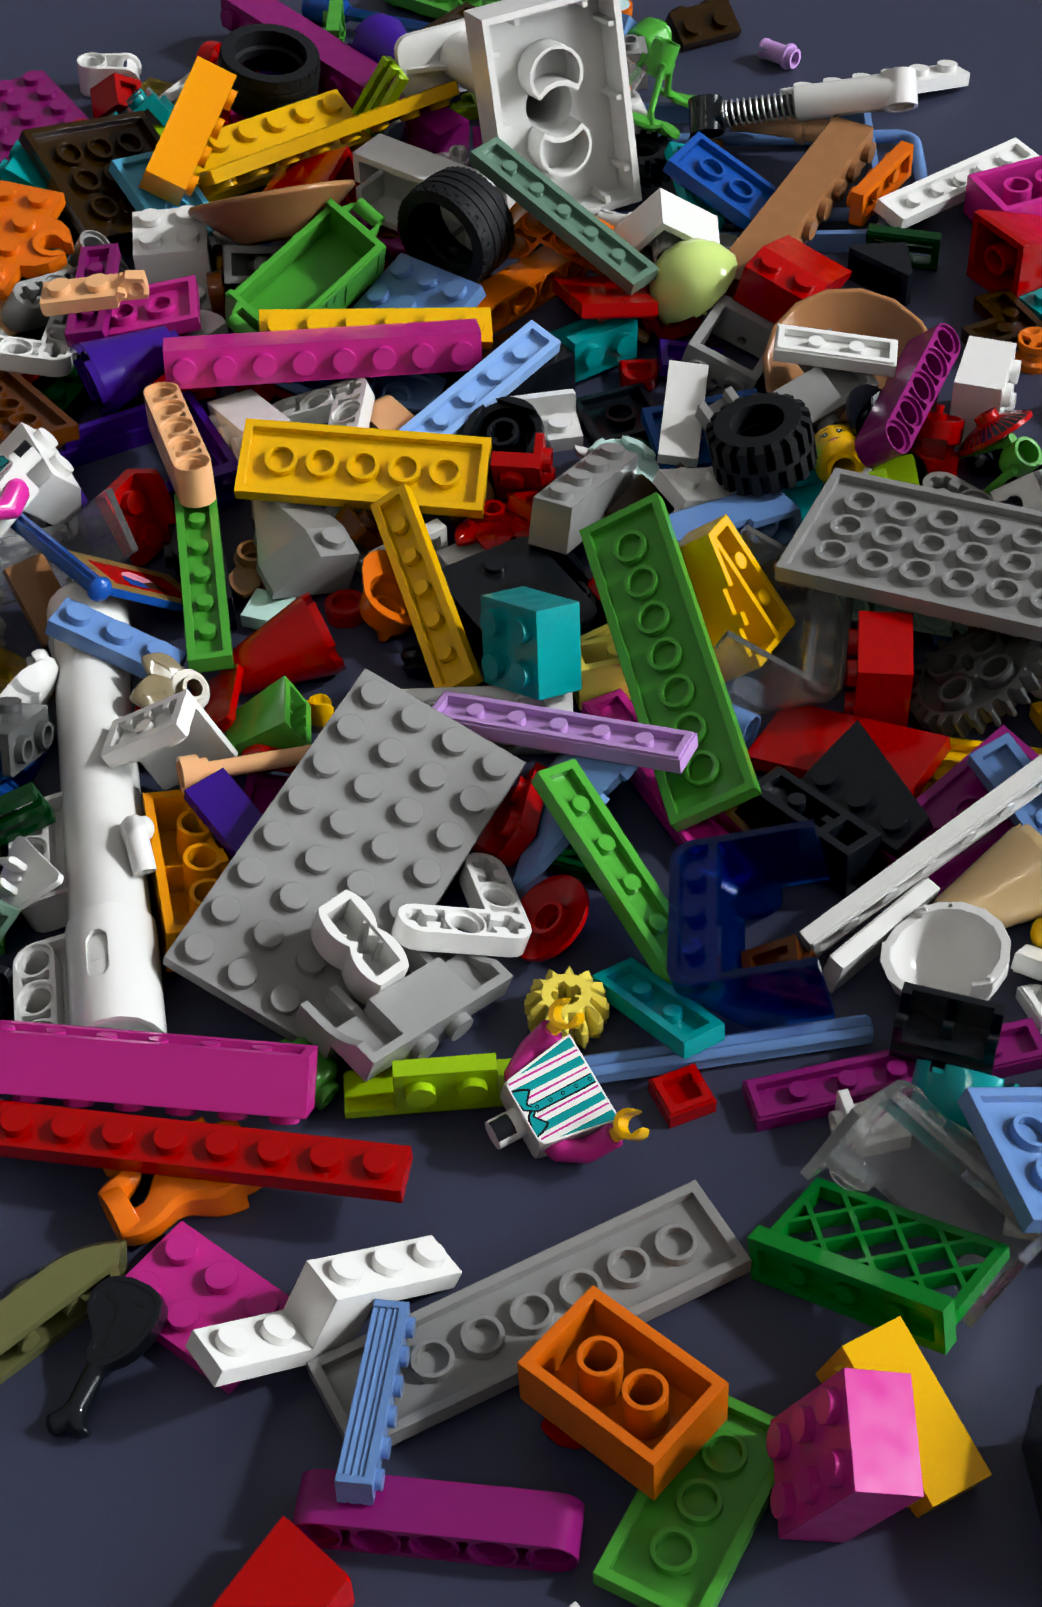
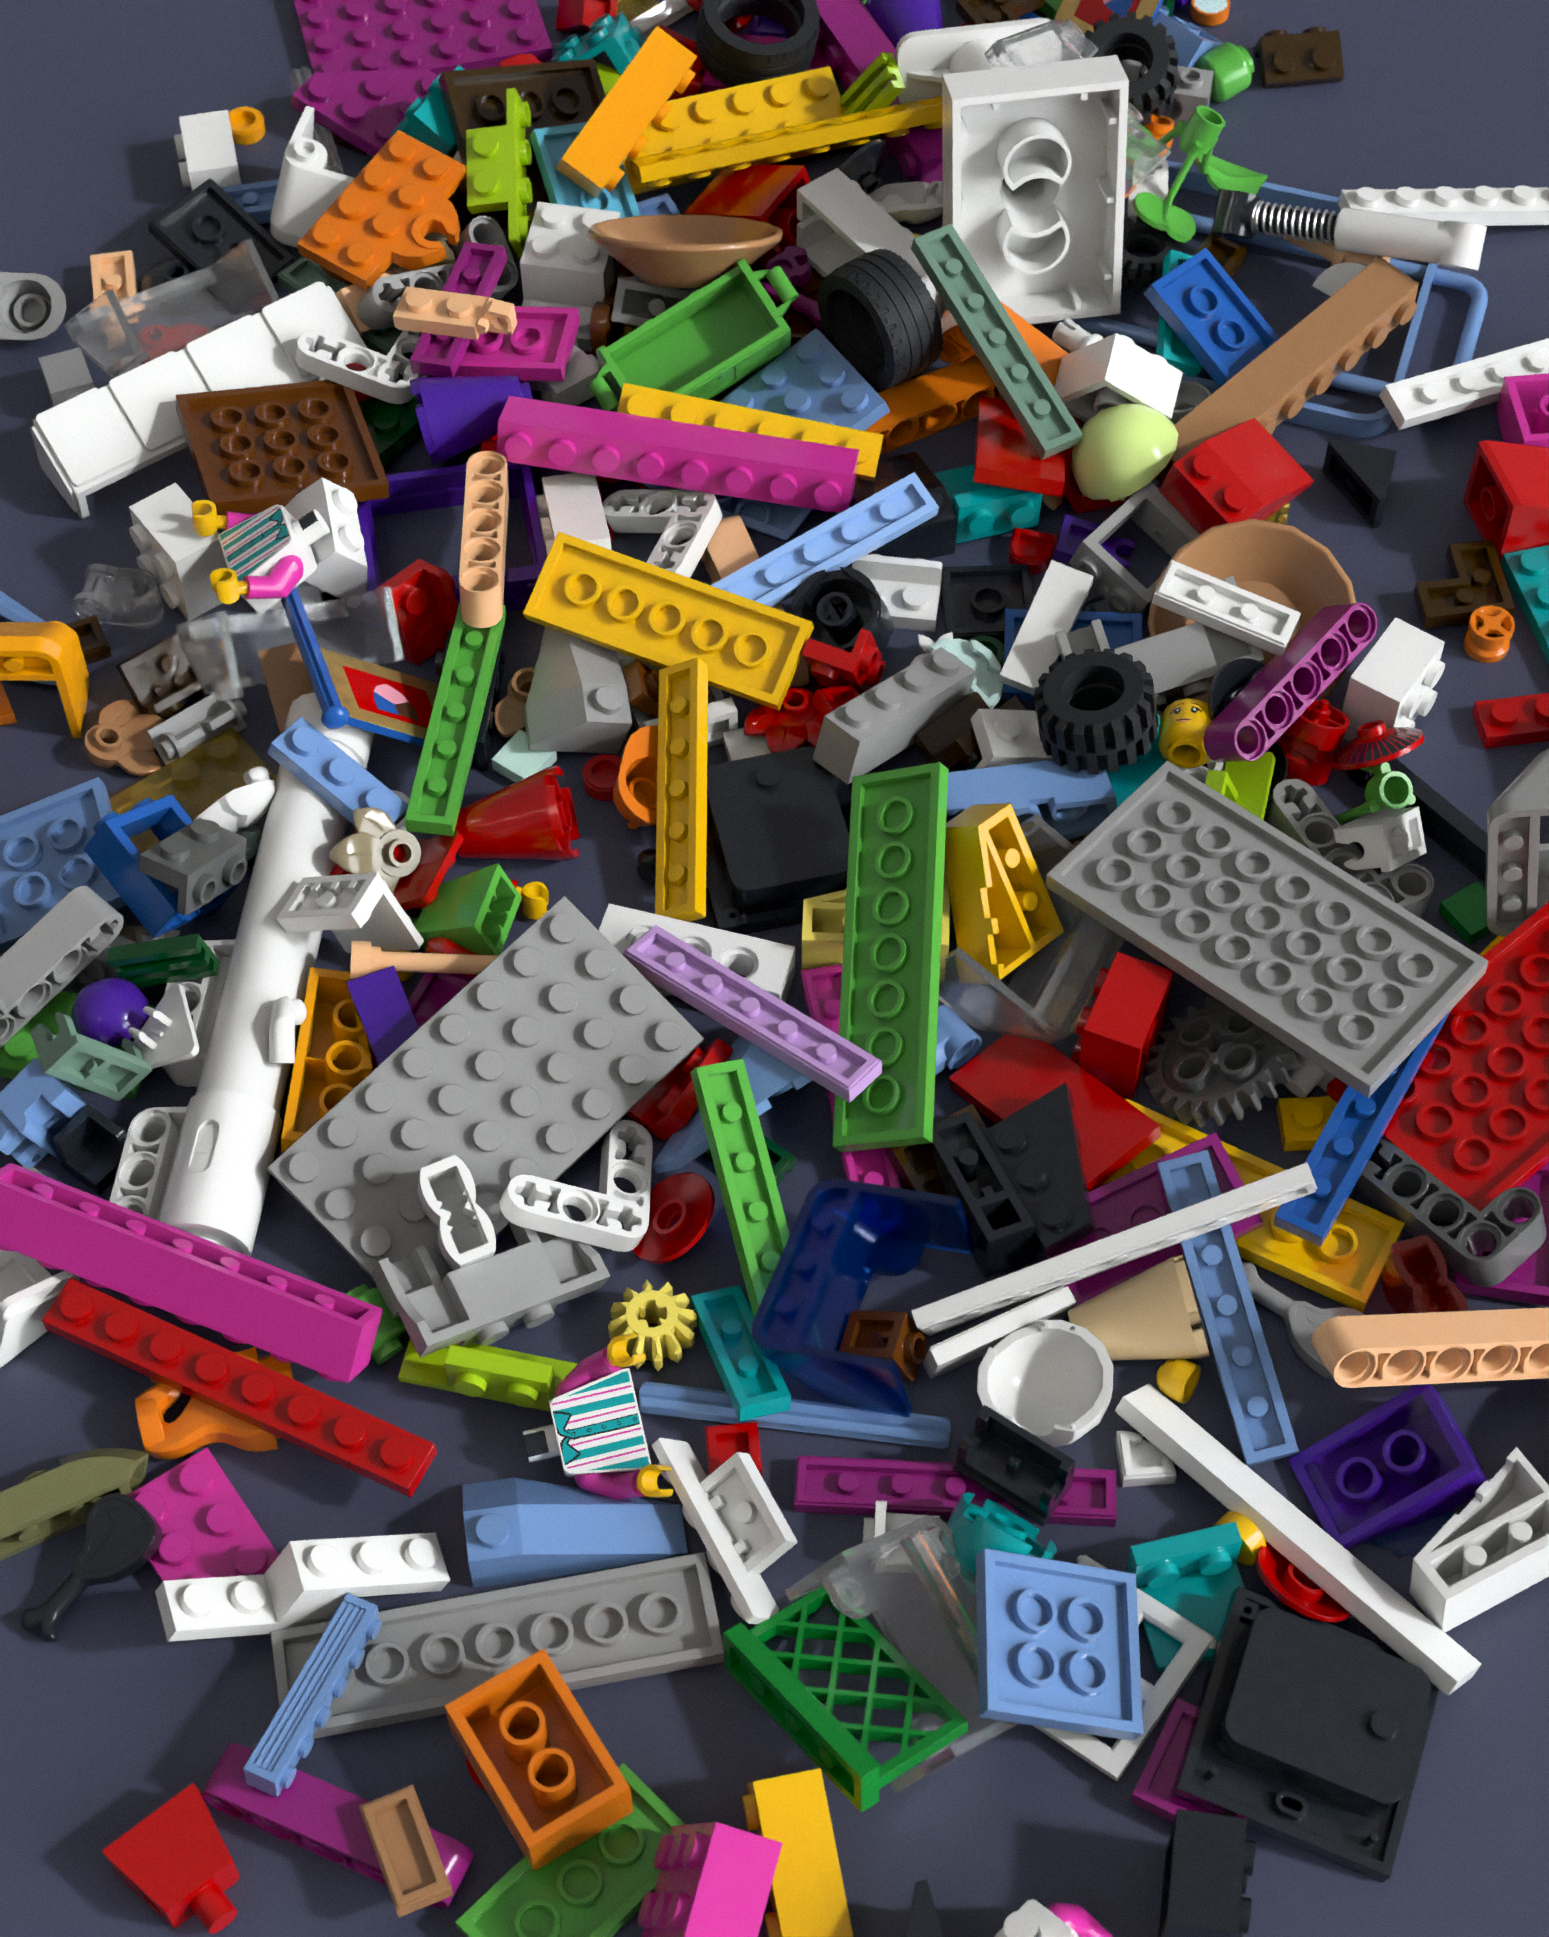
camera: 15 degrees right, 10 degrees up
(90, 196) = (498, 170): none -> lime bracket
(522, 1515) = (406, 1850): none -> medium nougat tile
(531, 642) = (757, 897): teal brick -> none
(536, 1206) = (551, 1530): none -> medium blue wedge
(714, 1144) = (734, 1520): none -> white bracket
(786, 55) = (1381, 129): lavender pin -> none
(803, 141) = (1337, 276): none -> white tile
(880, 181) = (1402, 358): orange plate -> none
(916, 241) = (1414, 456): dark green tile -> none

